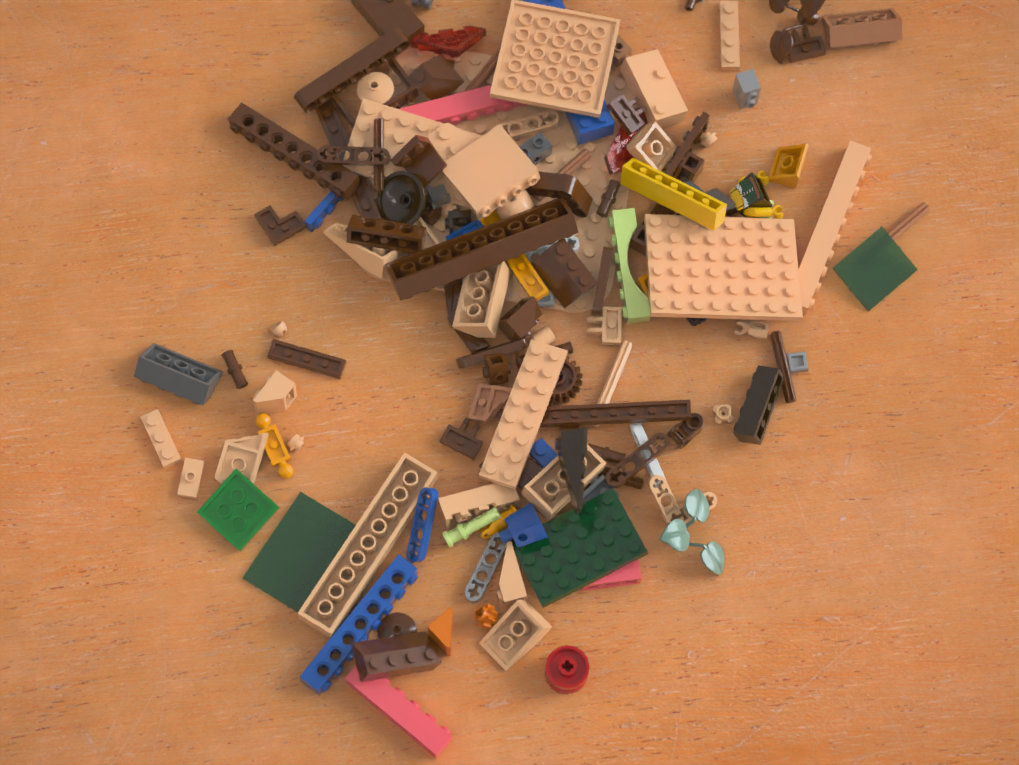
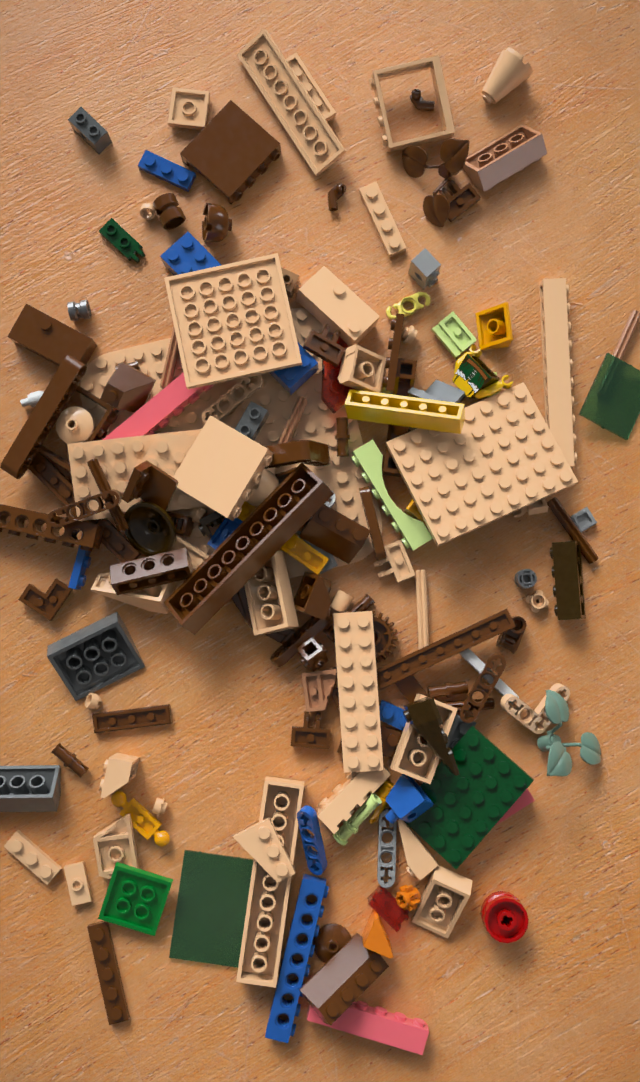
camera: 15 degrees left, 15 degrees up
(181, 567) = (108, 972): none -> reddish brown plate
(300, 291) = (95, 656): none -> dark grey slope
(344, 55) = (32, 399): none -> white cylinder
(378, 506) = (266, 848): none -> light nougat wing
(438, 196) = (182, 509): clear smoke panel -> none
(449, 41) = (123, 344): clear red plate -> none
(464, 619) = (386, 906): none -> clear red hinge
(717, 391) = (522, 581): none -> flat silver wheel
(727, 113) = (414, 300): none -> light yellow piece
(749, 156) = (454, 334): none -> yellowish green plate

